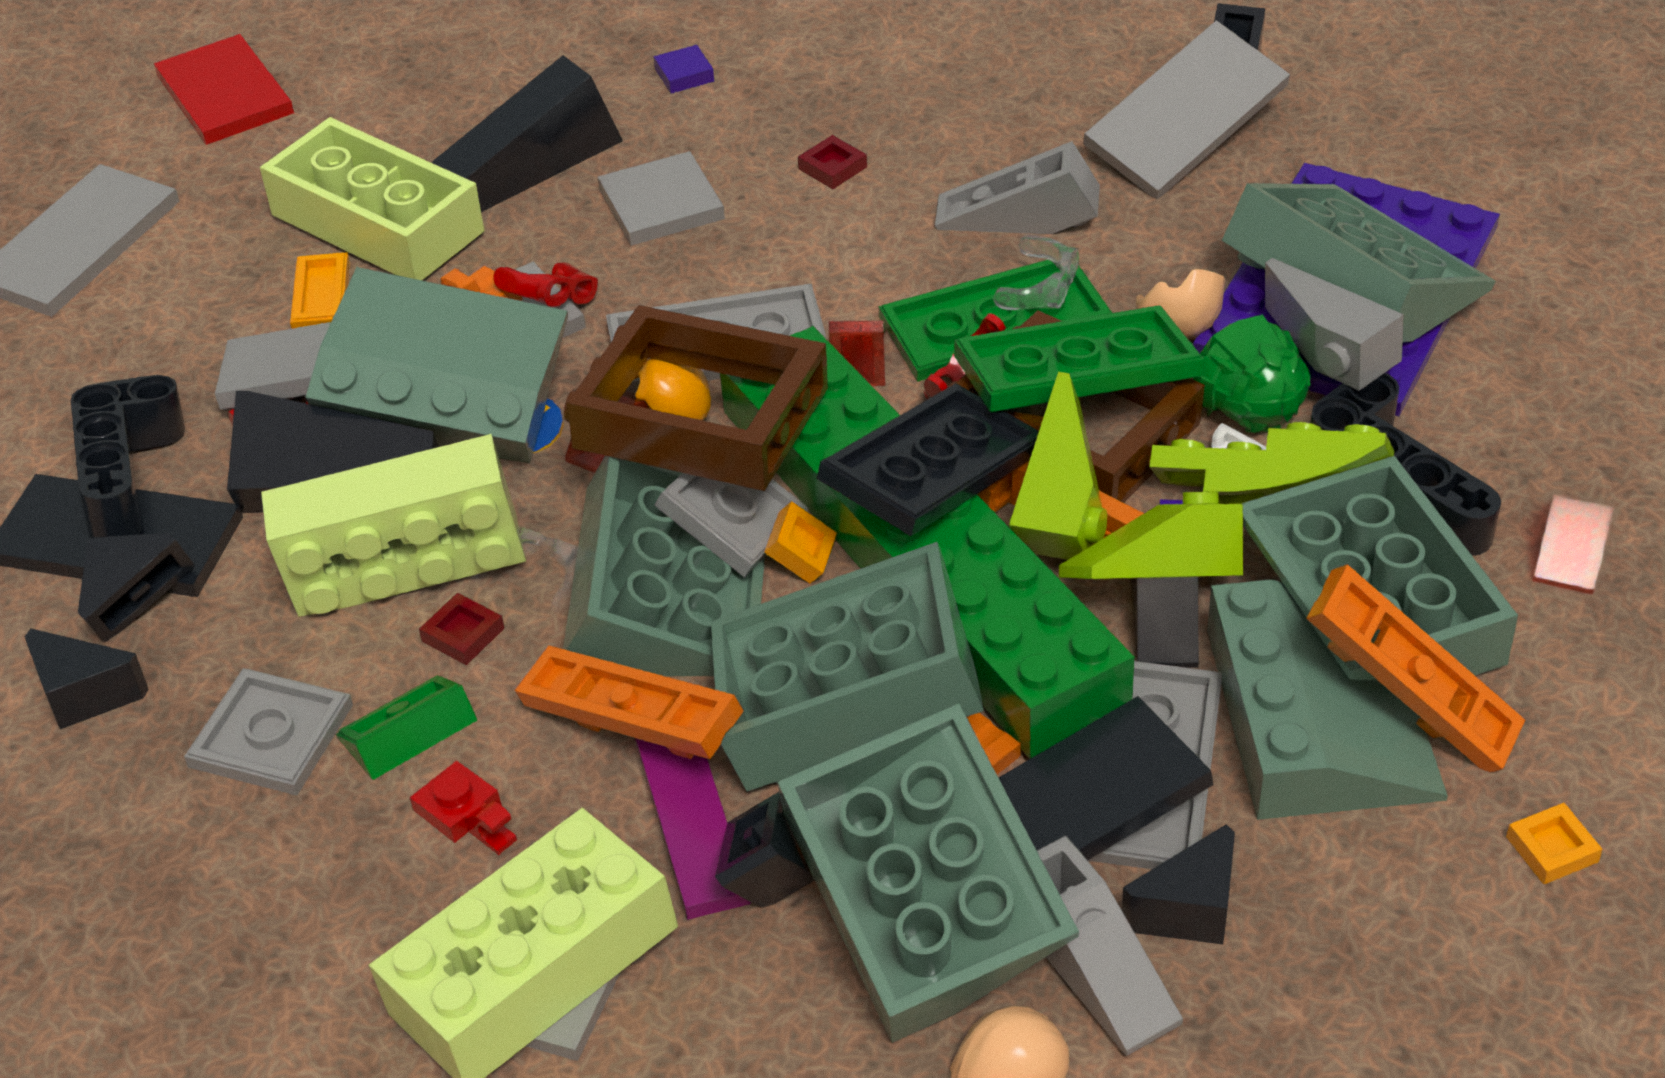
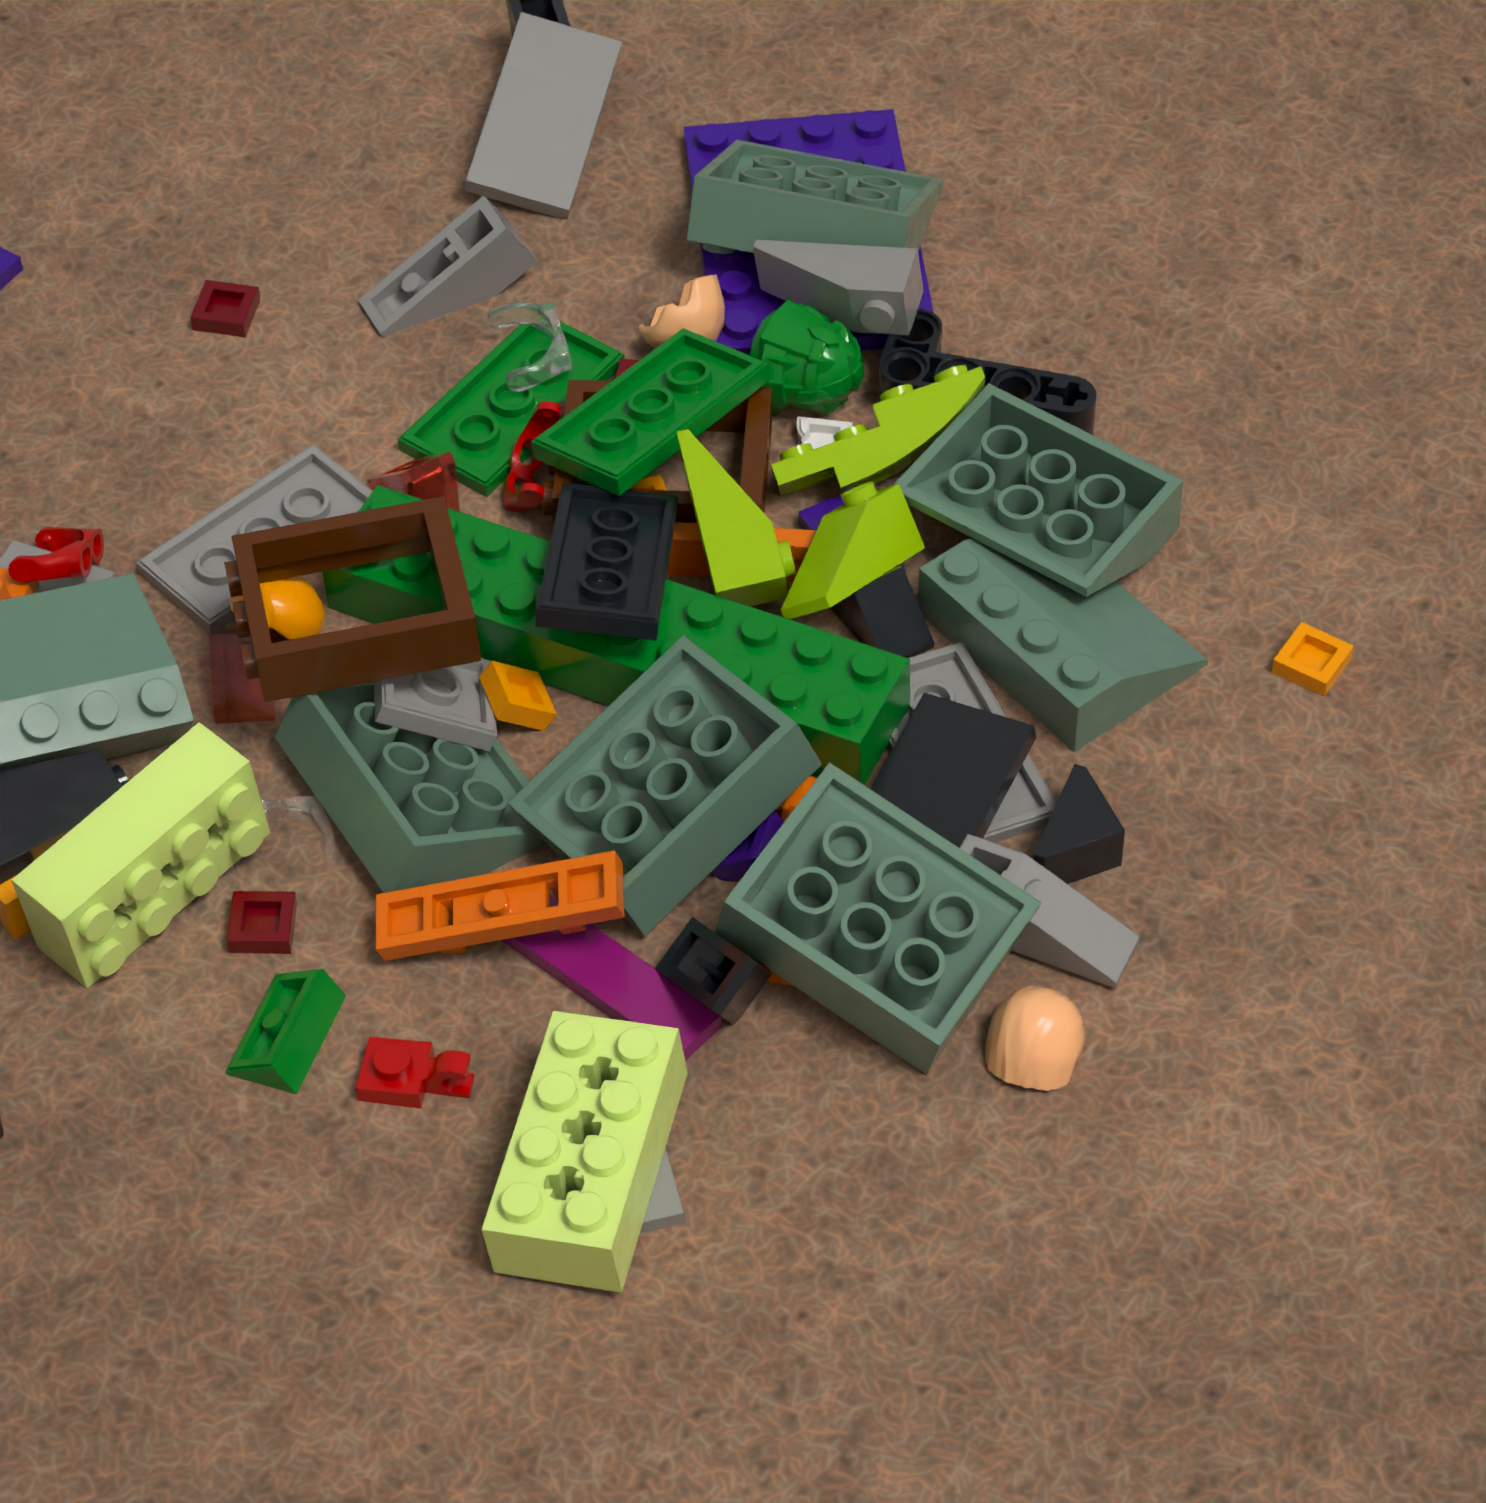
camera: 35 degrees left, 5 degrees up
(269, 731) = (162, 1100): light grey tile -> none
(660, 198) = (81, 418): light grey tile -> none
(1415, 669) = (1137, 562): orange hinge -> none
(1573, 544) = (1162, 396): clear red slope -> none

